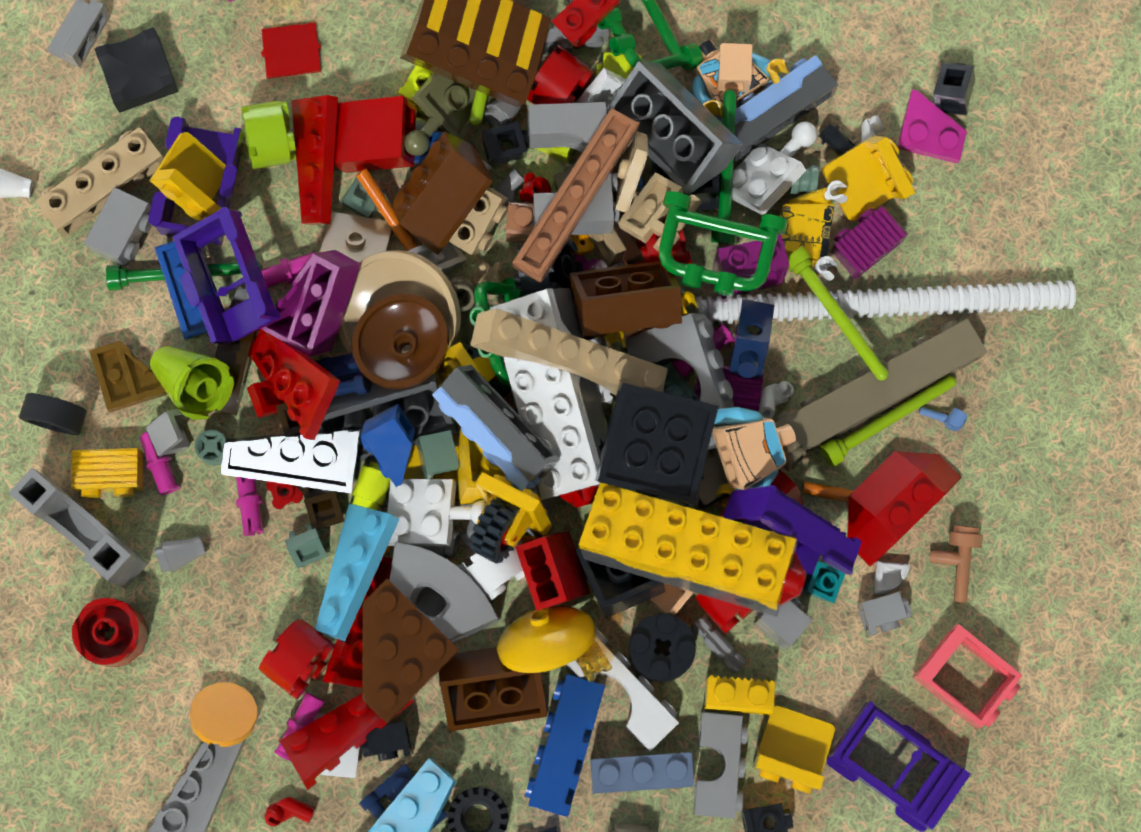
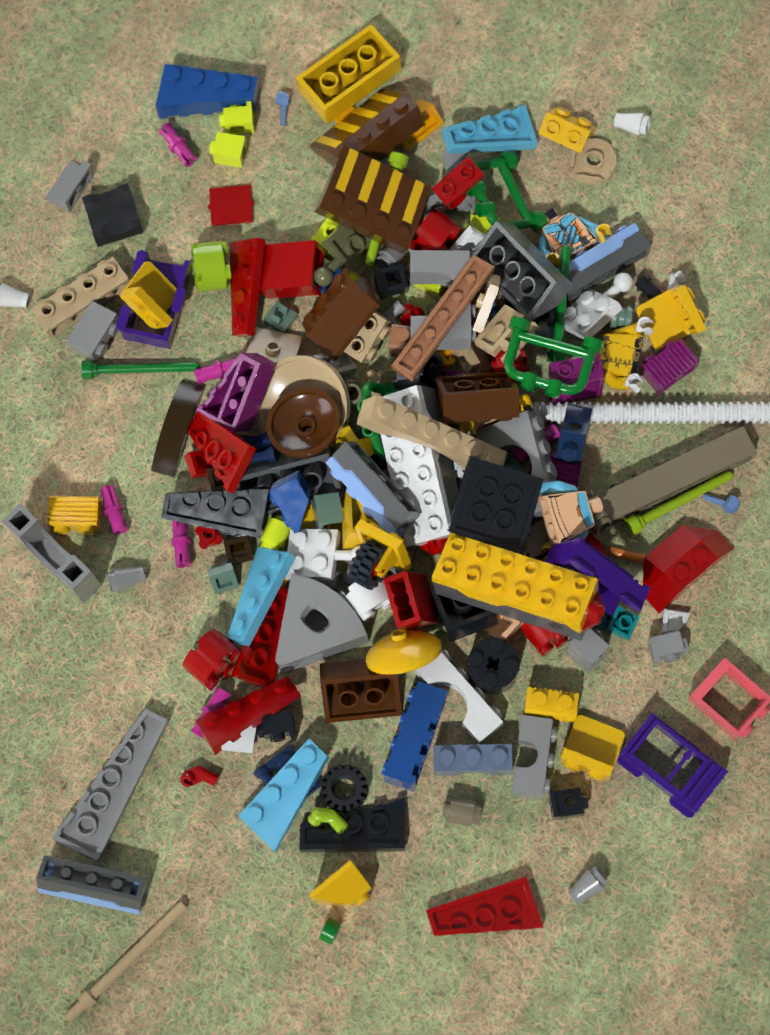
camera: 10 degrees right, 5 degrees down
(52, 414) = (35, 468): black tyre -> none
(95, 621) = (58, 627): red brick -> none
(123, 377) = (90, 444): pearl gold wing -> none
(168, 433) = (122, 487): light grey panel -> none
(172, 268) = (141, 379): blue tile -> none
(192, 380) = (144, 447): lime cone -> none
(199, 287) = (186, 401): dark purple piece -> none
(208, 443) = (152, 495): sand green wheel -> none
(223, 714) = (153, 699): light orange tile -> none
(386, 209) = (297, 325): orange bar -> none
(398, 651) = (290, 654): reddish brown plate -> none
(593, 662) = (438, 670): clear yellow wheel -> none
(718, 644) = (537, 666): light grey axle -> none
(735, 67) = (570, 228): light nougat panel -> none
(773, 396) = (590, 479): white arm -> none
(800, 264) = (614, 378): lime piece -> none
(930, 131) = (722, 284): dark pink wing -> none
(954, 88) = (741, 252): black brick -> none
(965, 539) = (734, 594): nougat piece -> none

